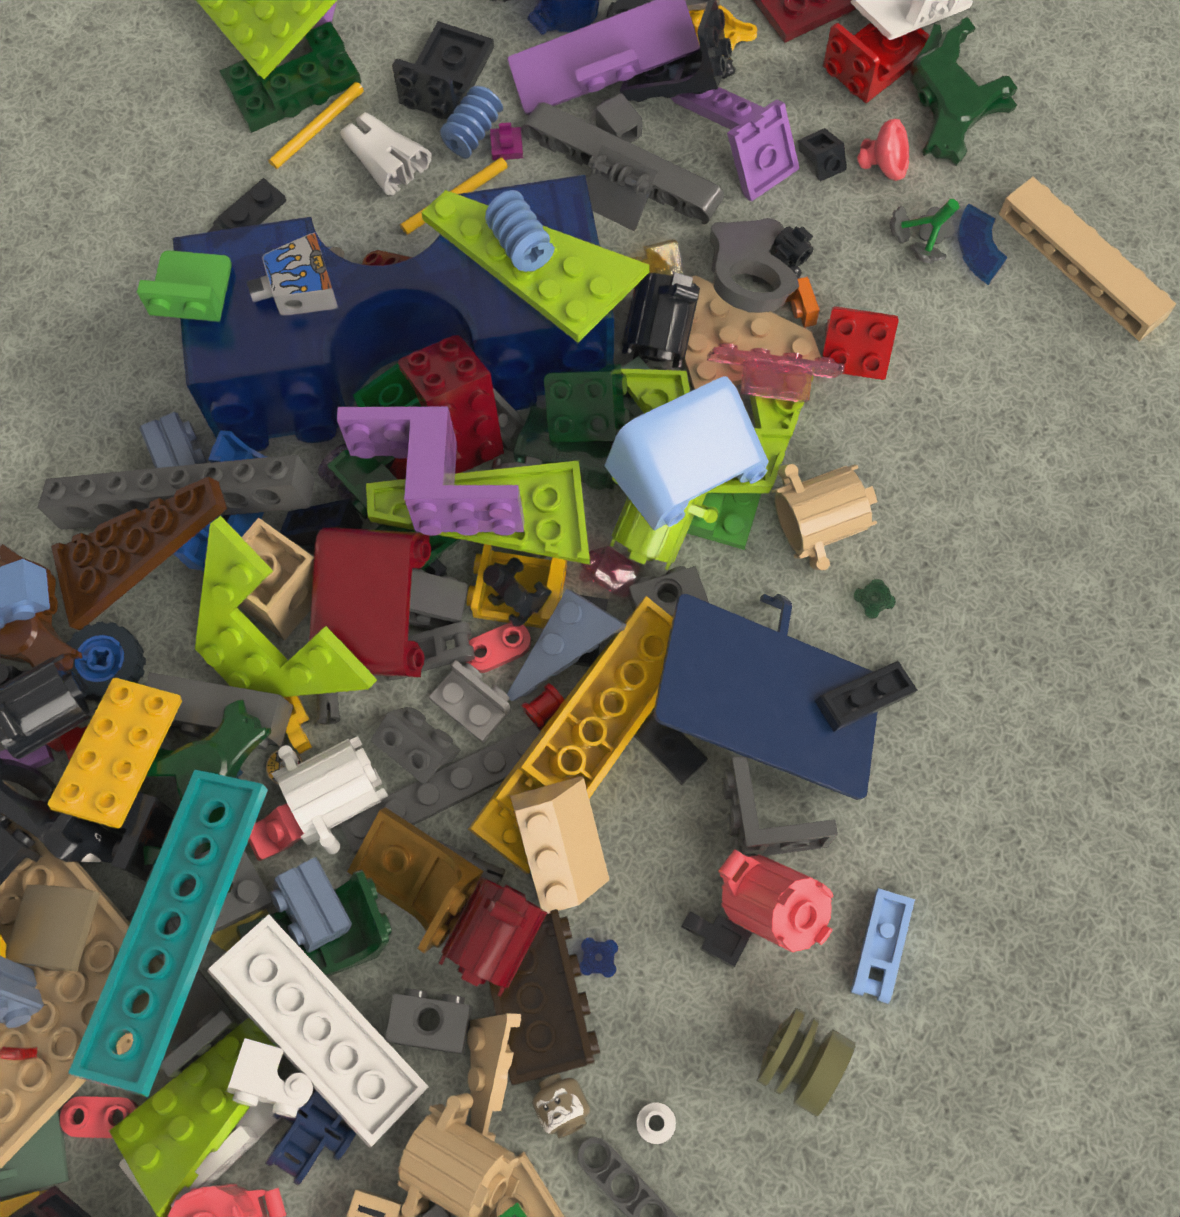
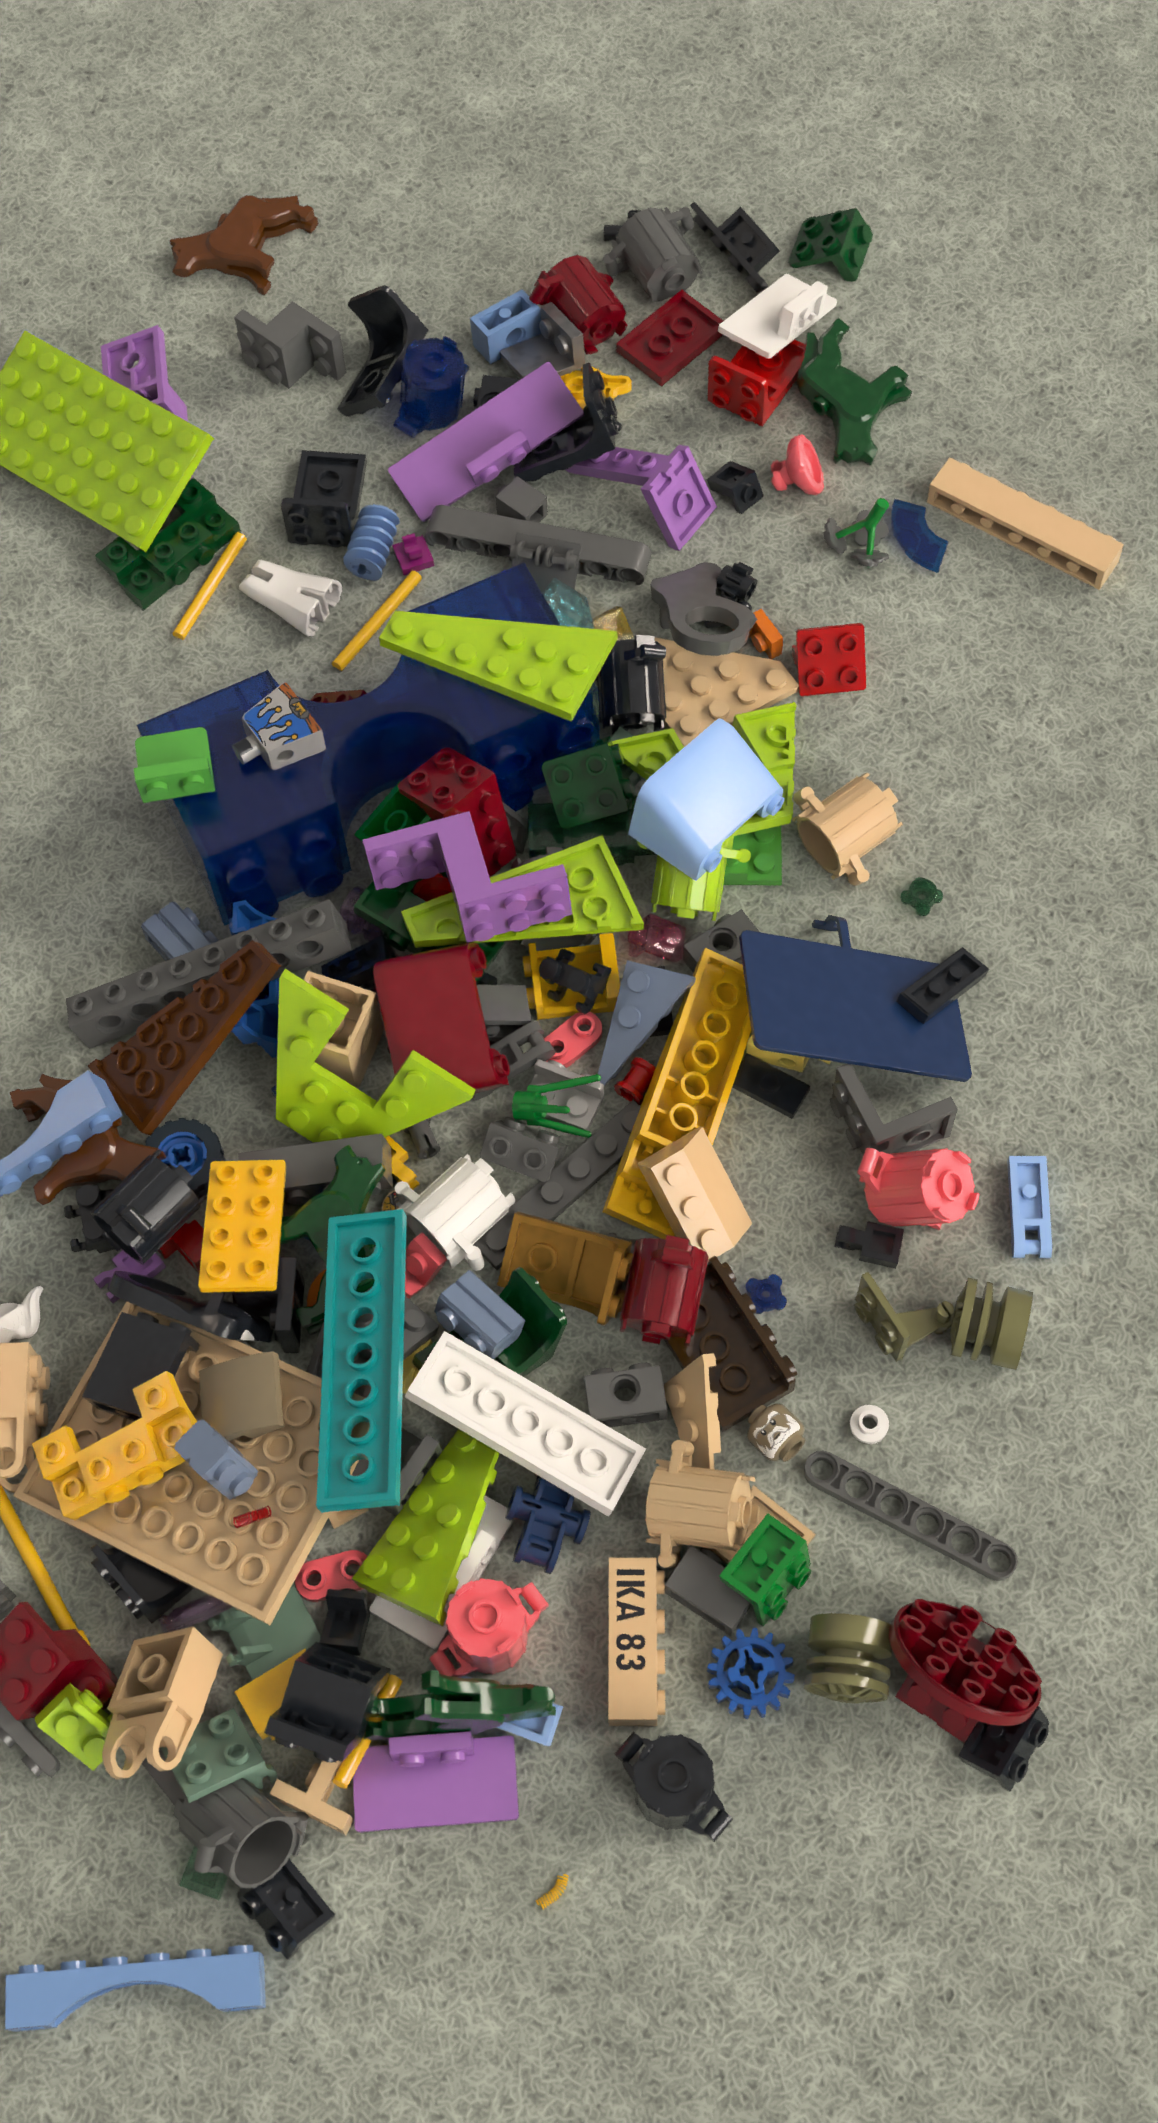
camera: 15 degrees left, 5 degrees down
(90, 1172) = (345, 1620): none -> black bracket
(251, 208) = (171, 686): black hinge -> none
(257, 1080) = (486, 1479): white brick -> none
(437, 707) = (534, 1107): none -> green plant
(519, 231) = (485, 630): medium blue piece -> none
(623, 230) = (568, 605): none -> clear light blue brick
(714, 1039) = (895, 1329): none -> olive plate
(775, 375) = (761, 710): clear pink bracket -> none

